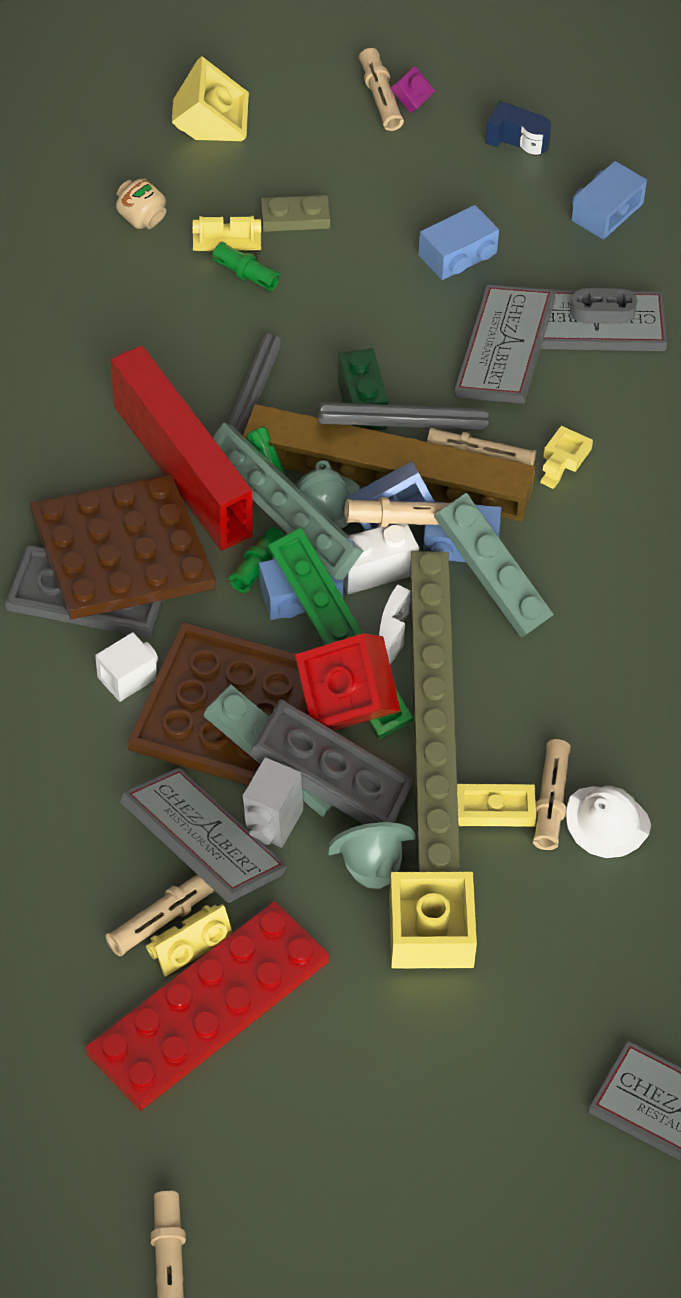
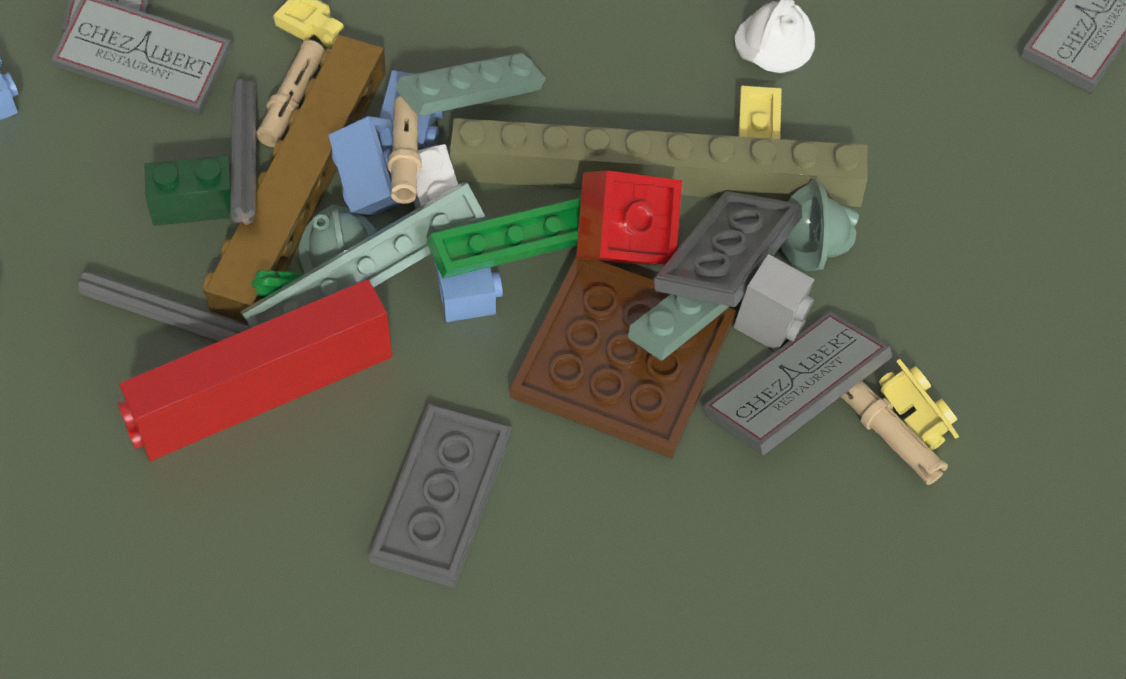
camera: 85 degrees left, 5 degrees up
(122, 546) = (386, 451): reddish brown plate -> none
(127, 666) = (565, 449): white brick -> none
(206, 1005) = (997, 397): red plate -> none
(248, 570) = (421, 313): green pin -> none
(392, 623) = (527, 194): white slope -> none
(432, 920) = (909, 181): light yellow brick -> none
(548, 829) = (738, 75): tan pin -> none

